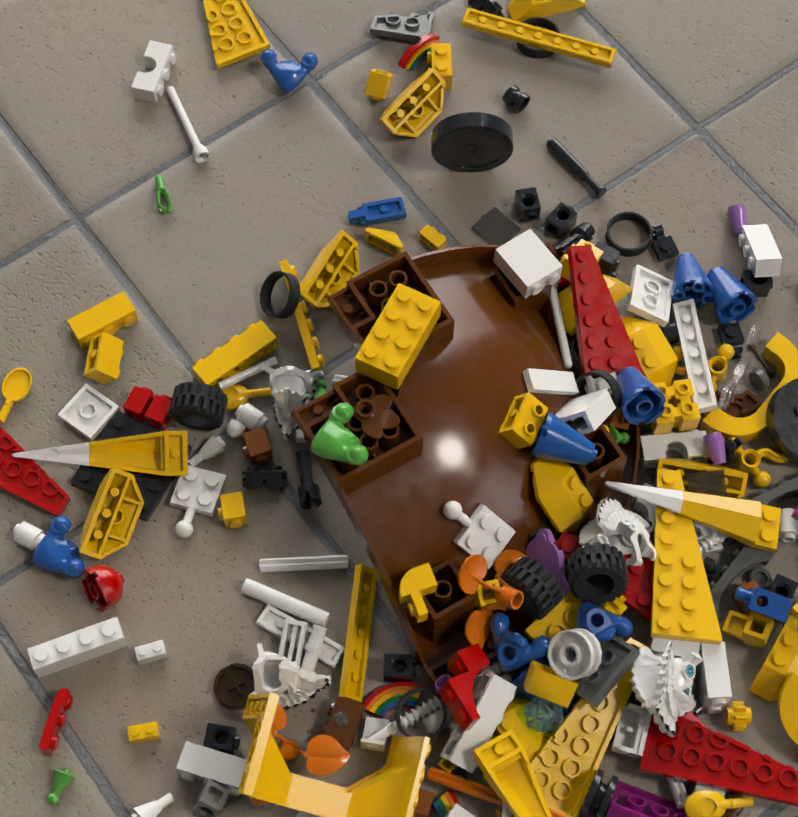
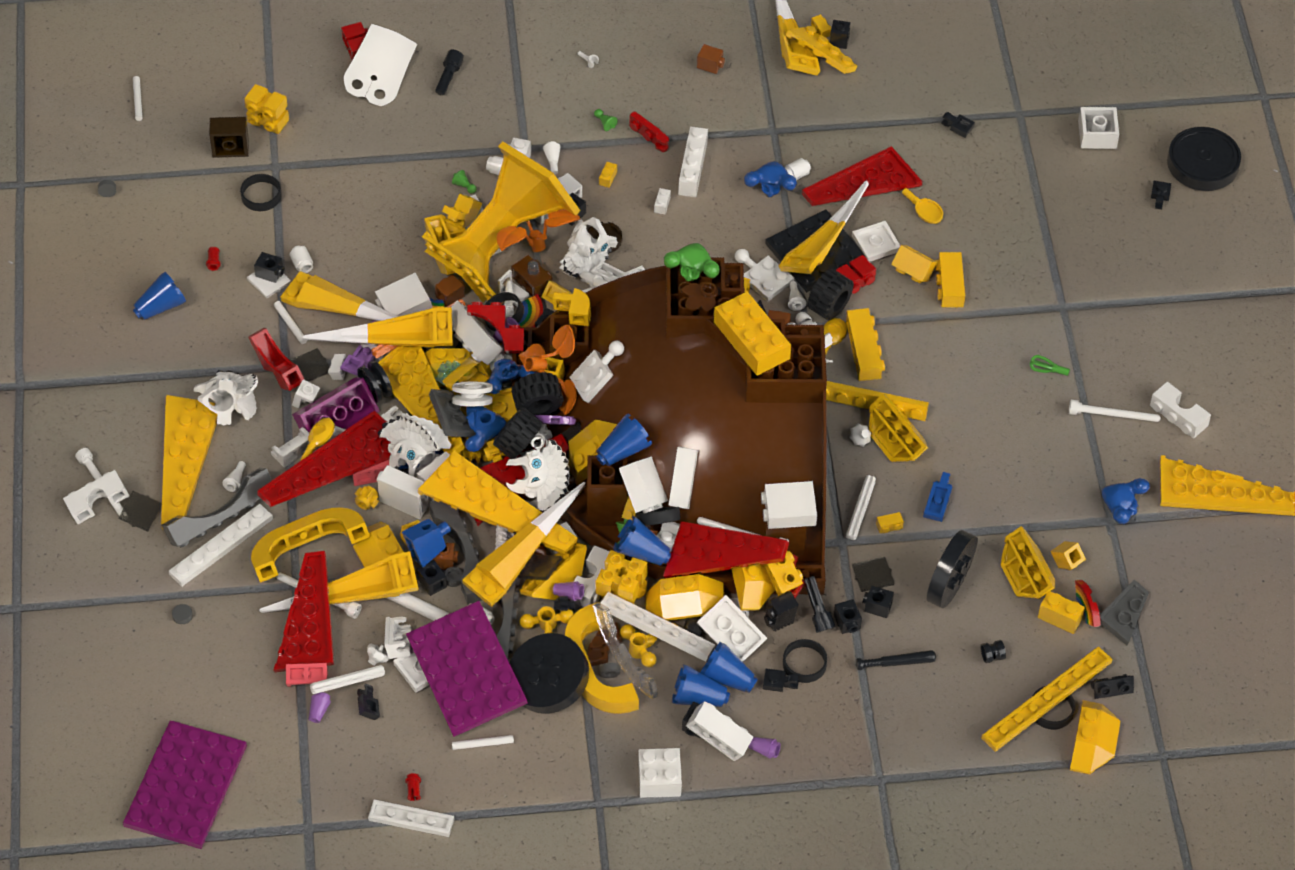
camera: 120 degrees right, 10 degrees down
(103, 586) = (727, 190): red cylinder -> none
(111, 515) = (774, 212): yellow wedge -> none
(246, 373) = (845, 347): white bar -> none
(266, 291) = (897, 389): black tyre -> none
(384, 240) = (907, 490): yellow slope -> none
(523, 420) = (655, 423): yellow brick -> none
(710, 567) = (482, 540): black plate -> none
(732, 335) = (663, 677): black plate -> none
(770, 372) = (636, 668): dark brown hinge -> none

